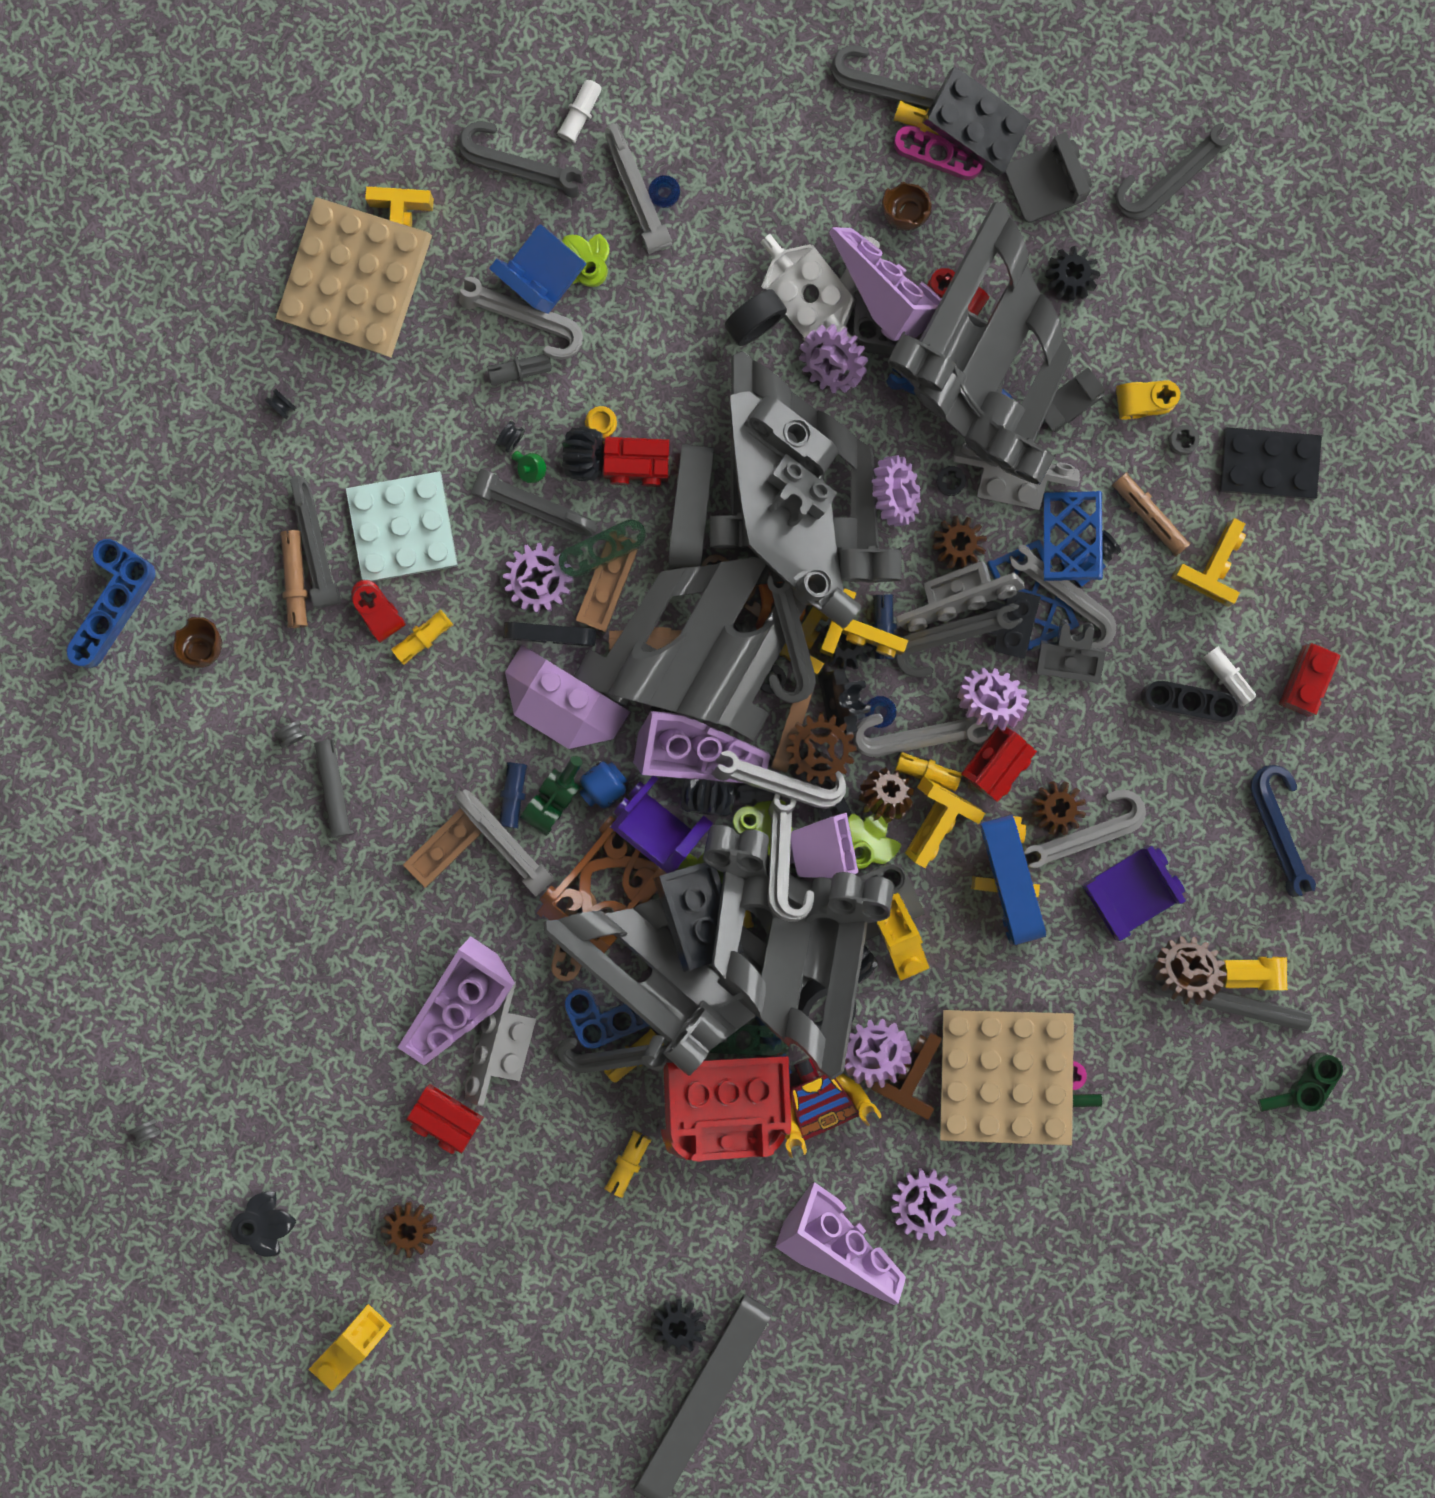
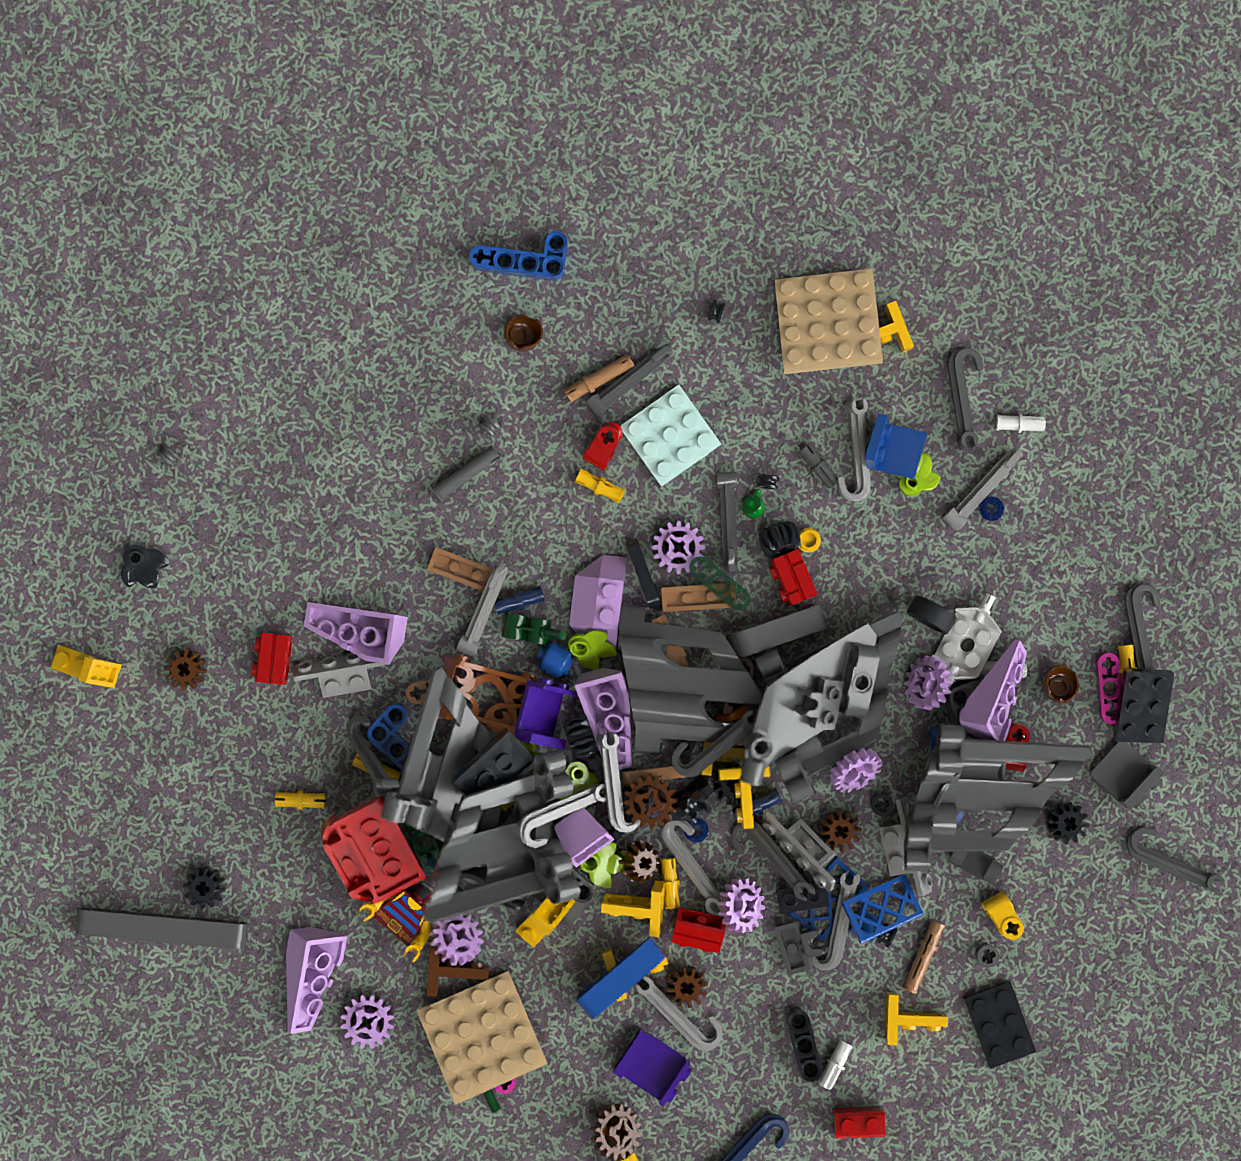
camera: 60 degrees right, 0 degrees up
(610, 732) = (591, 648): none -> lime plate

